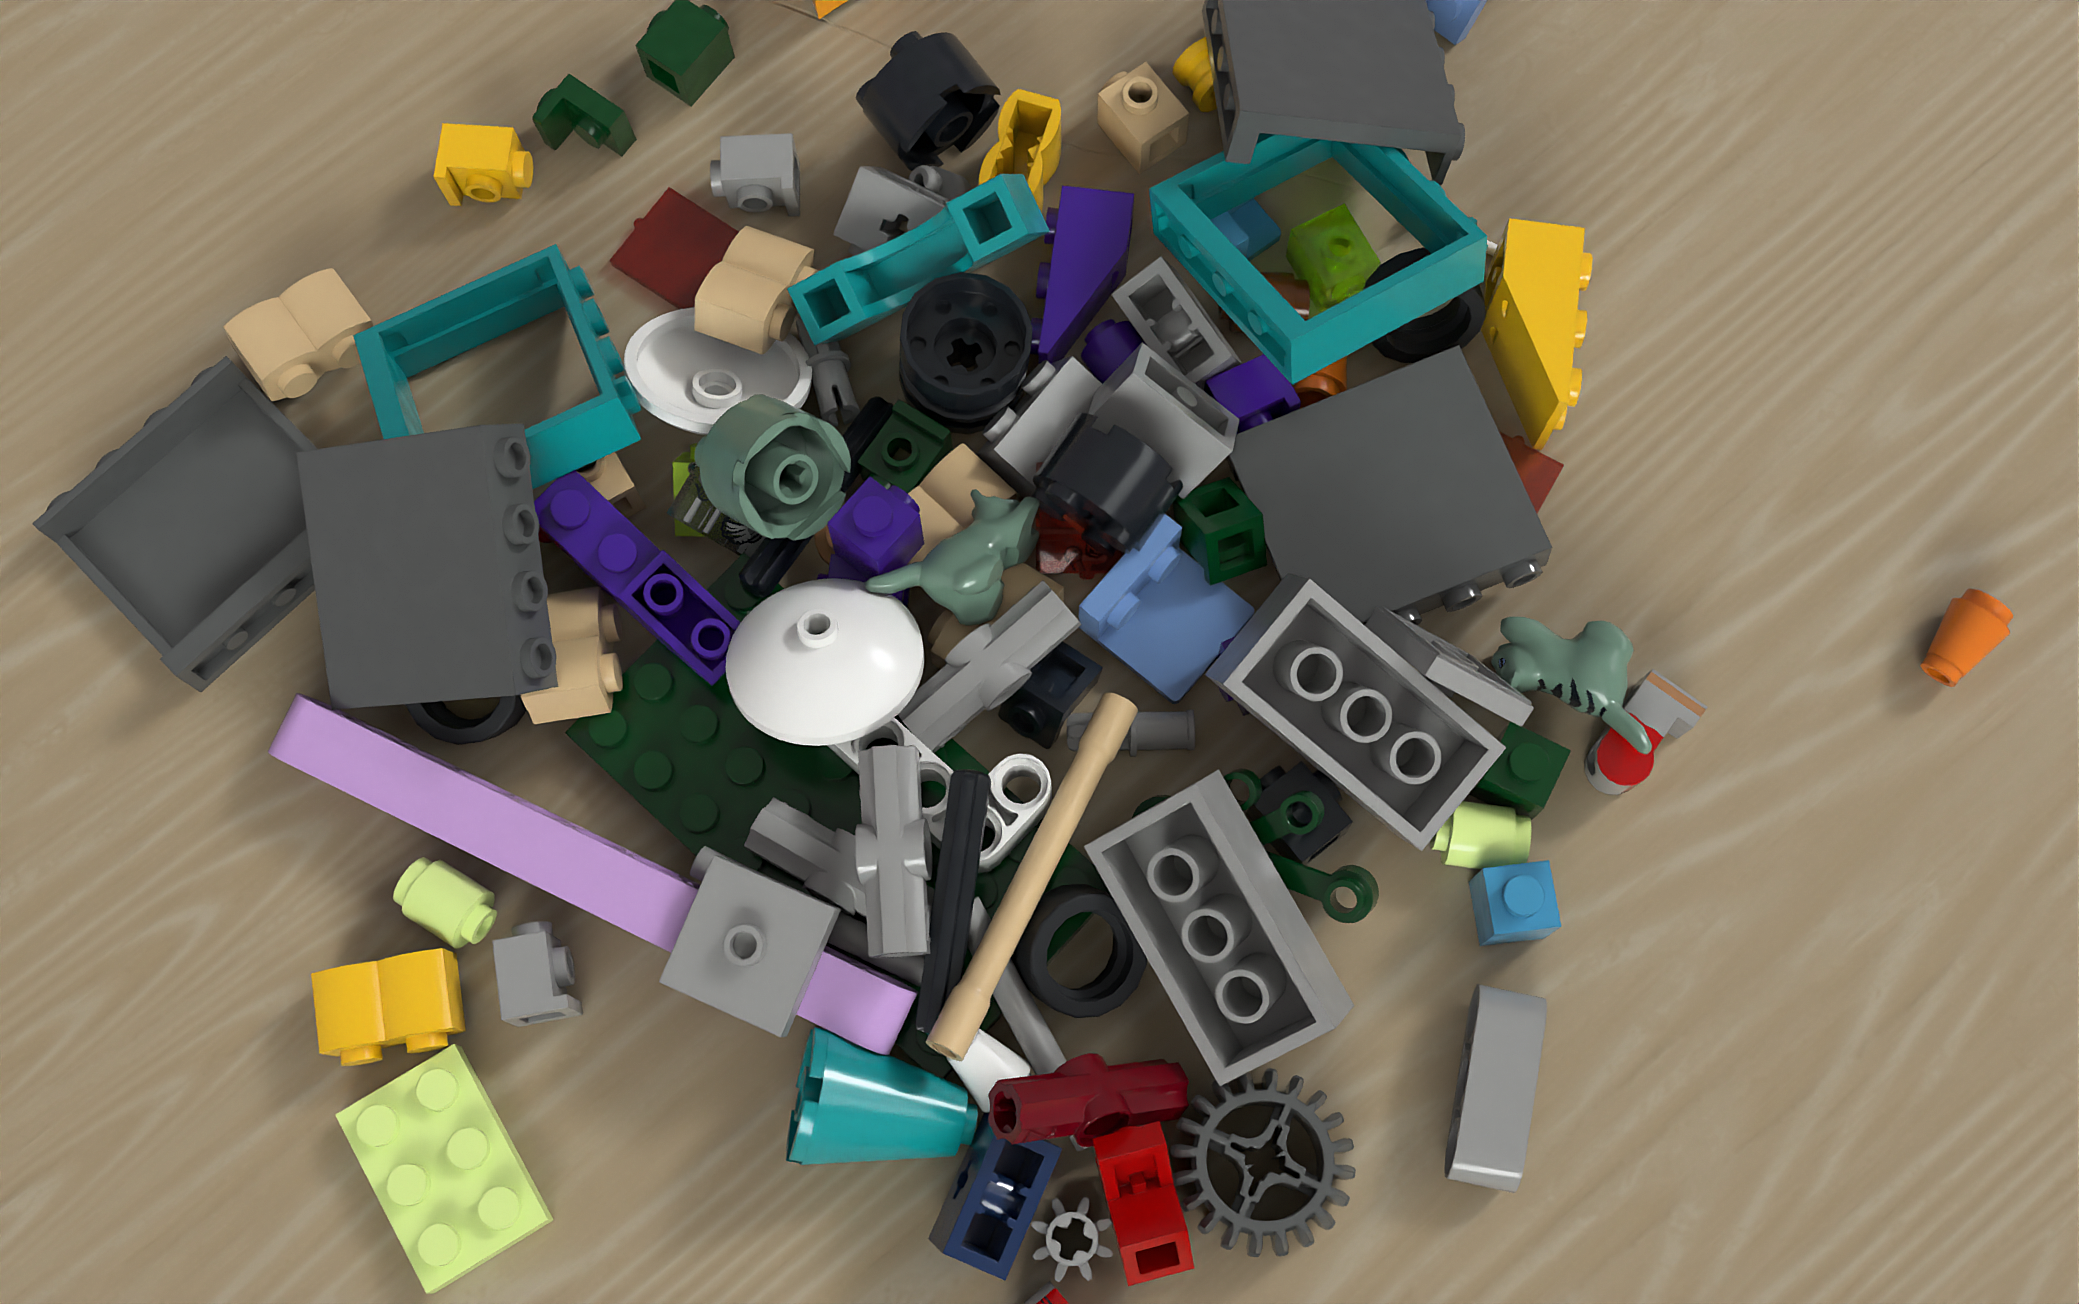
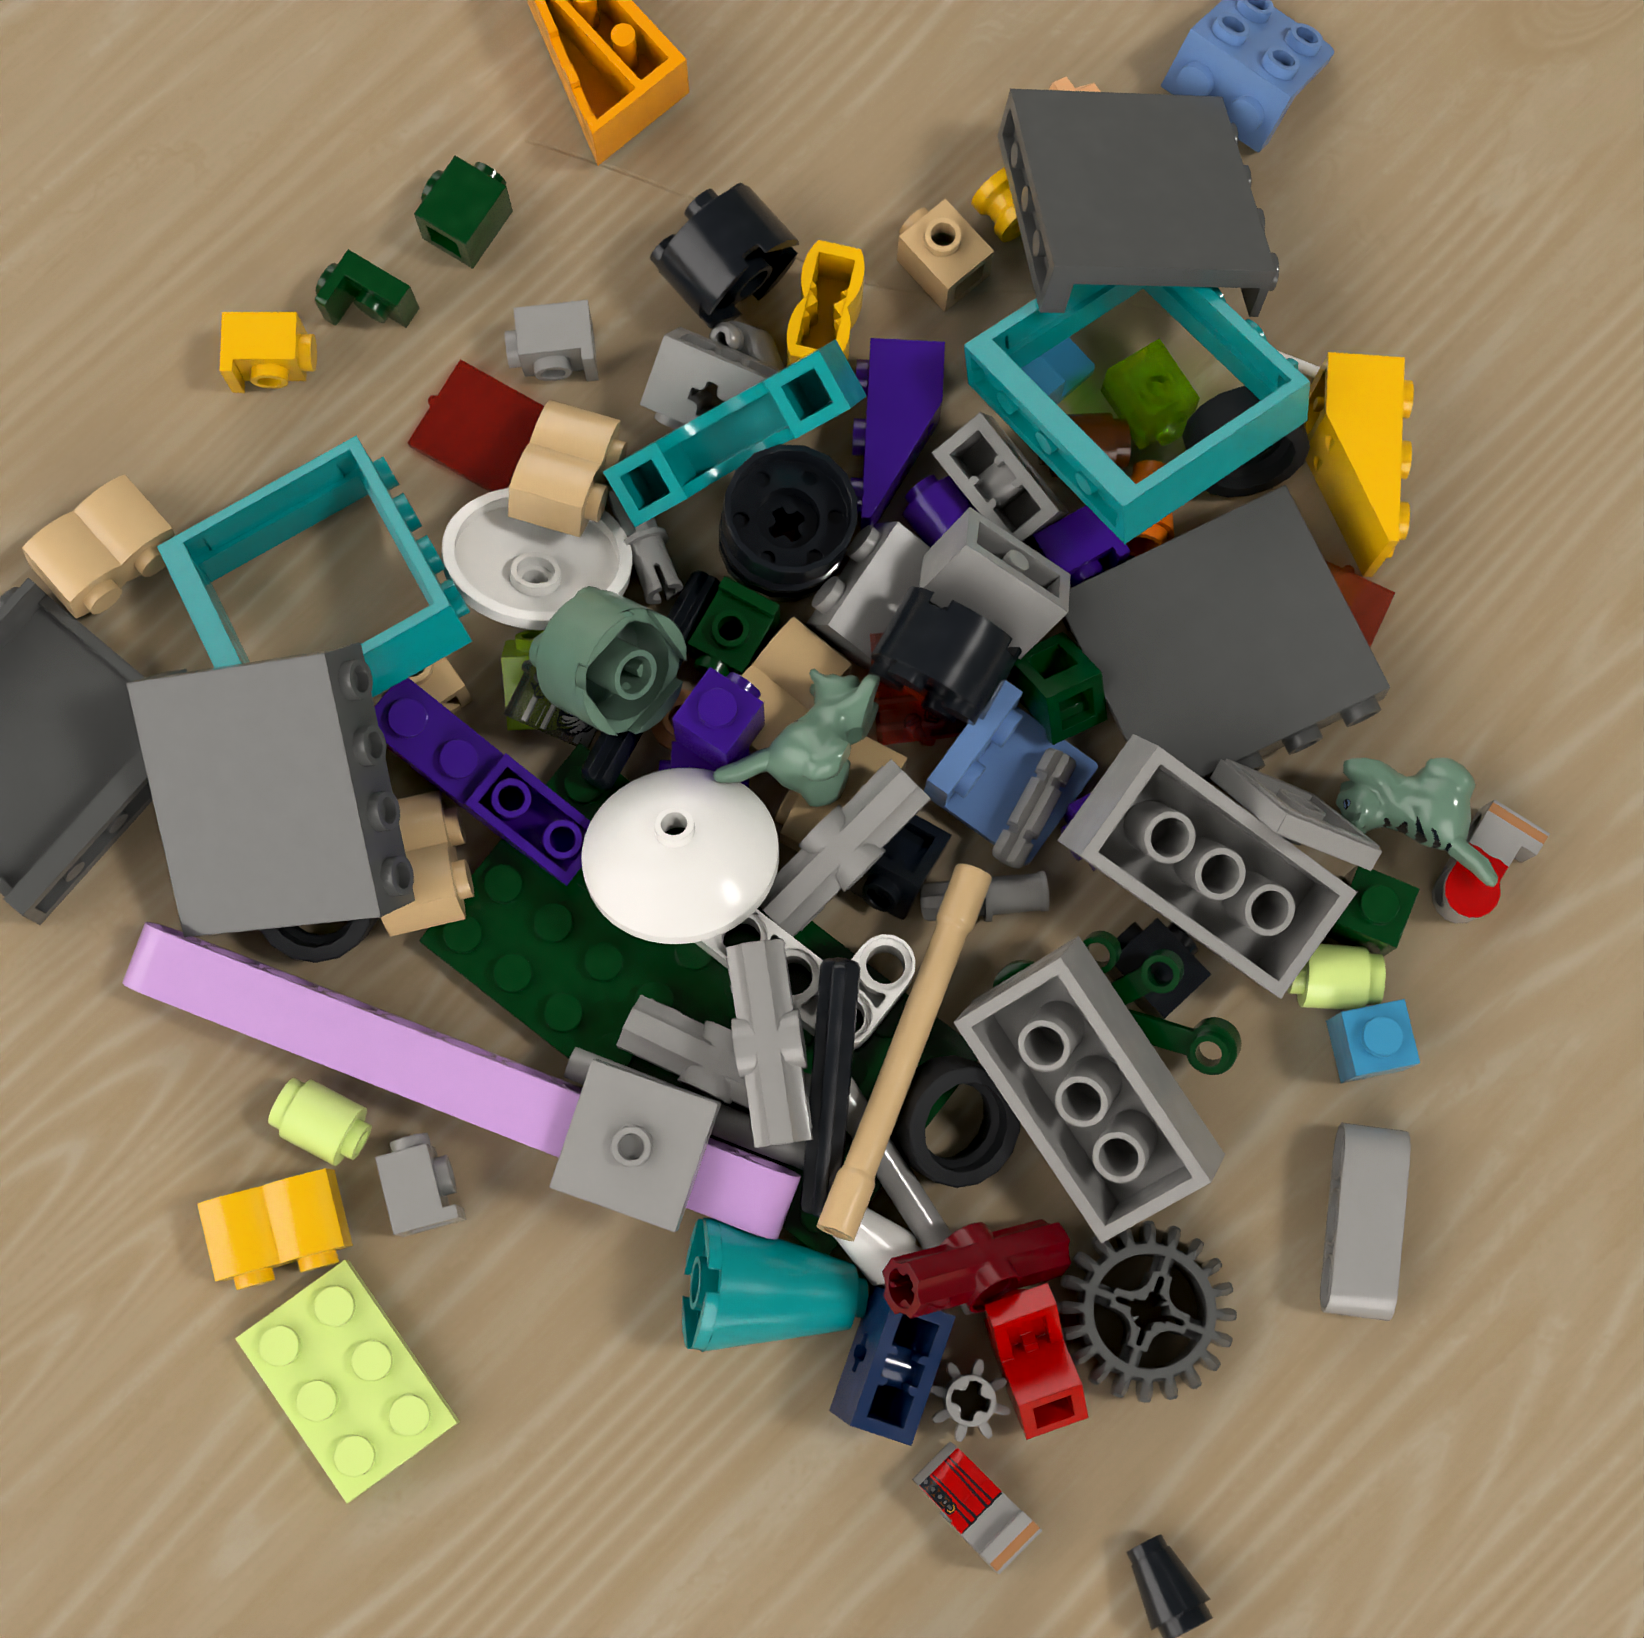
camera: 10 degrees left, 5 degrees up
(1186, 646) = (1034, 808): none -> light grey axle

